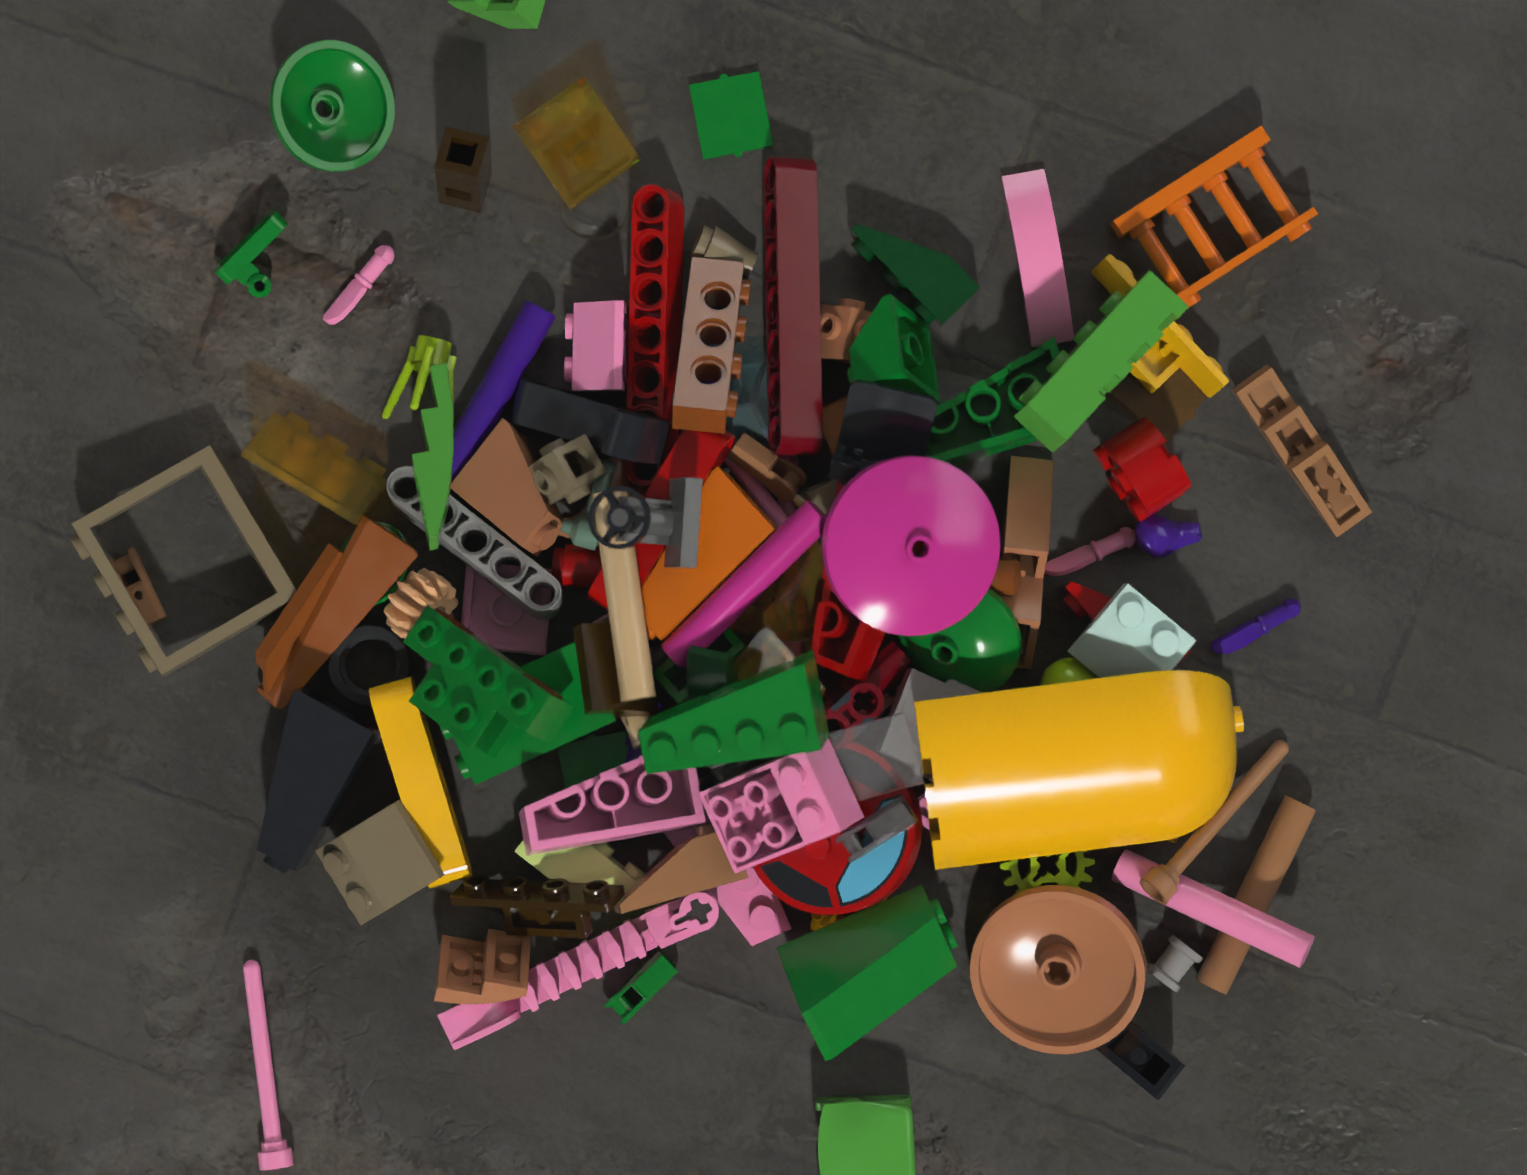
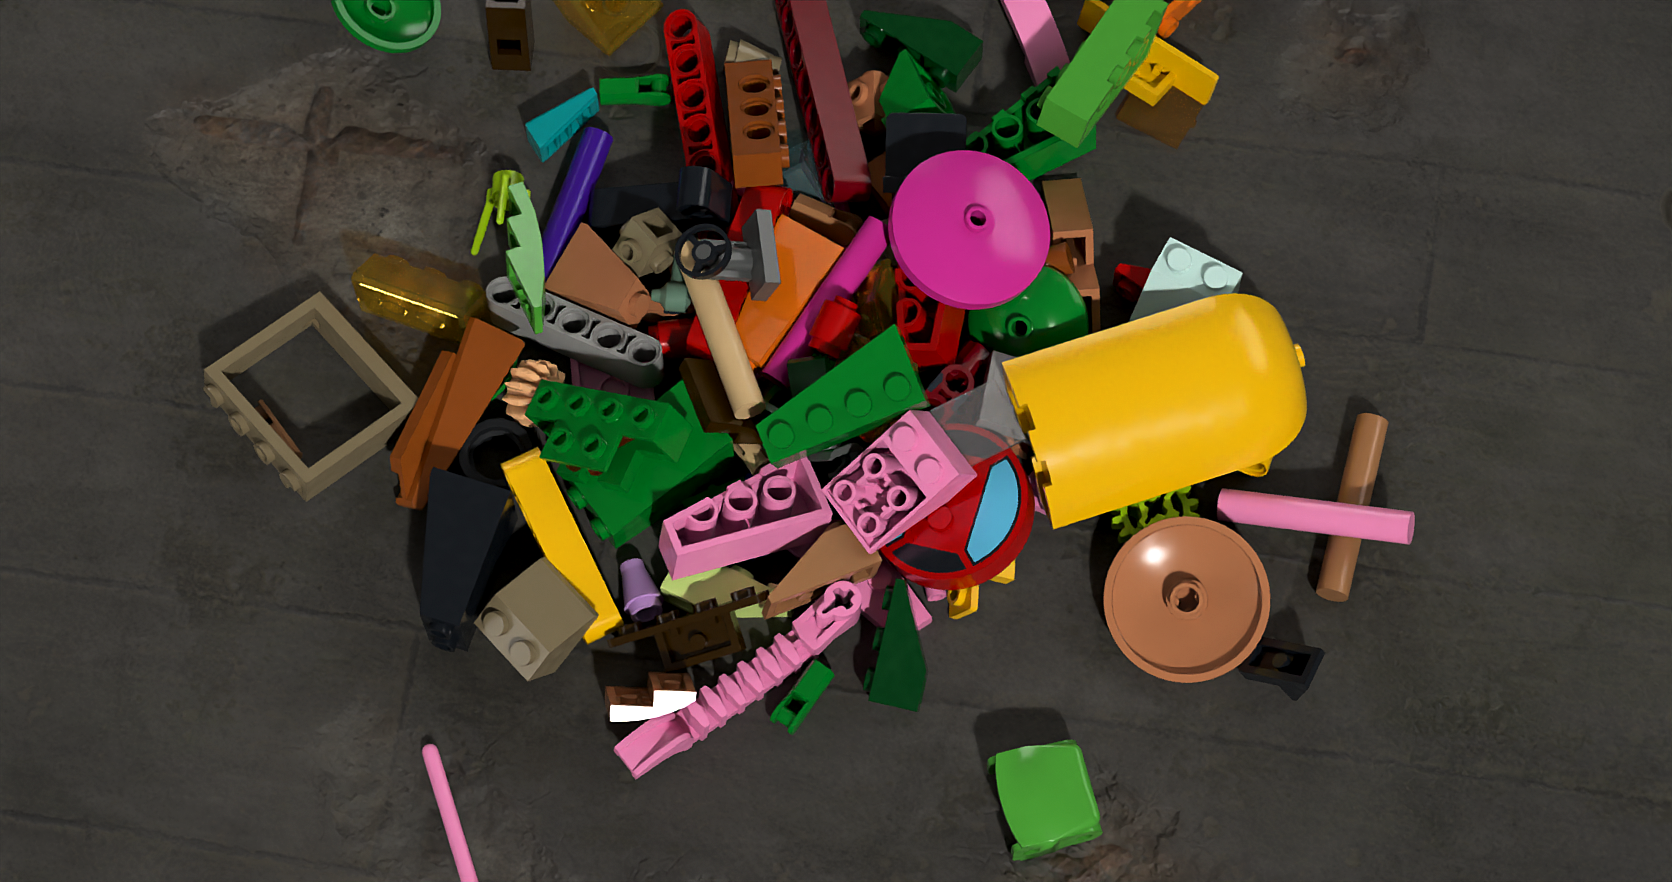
camera: 10 degrees left, 20 degrees down
(239, 260) = (322, 143): green piece -> none
(357, 287) = (435, 144): bright pink piece -> none
(494, 292) = (560, 123): none -> teal slope
(494, 841) = (640, 593): none -> lavender cone
(582, 260) = (627, 90): none -> green bar
(598, 347) = (654, 143): bright pink slope -> none
(745, 624) = (834, 326): none -> red brick
(750, 979) = (901, 661): none -> dark green slope
(867, 966) = (1009, 623): green slope -> none
(882, 827) = (996, 481): flat silver bar -> none
(1088, 554) = (1136, 245): bright pink piece -> none
(1142, 469) = (1160, 159): red brick -> none
(1163, 536) = (1192, 221): dark purple animal -> none
(1163, 881) = (1264, 494): medium nougat piece -> none
(1174, 963) = (1293, 579): light grey bush -> none
(1254, 628) = (1298, 280): dark purple piece -> none
(1302, 450) = (1297, 131): medium nougat slope -> none

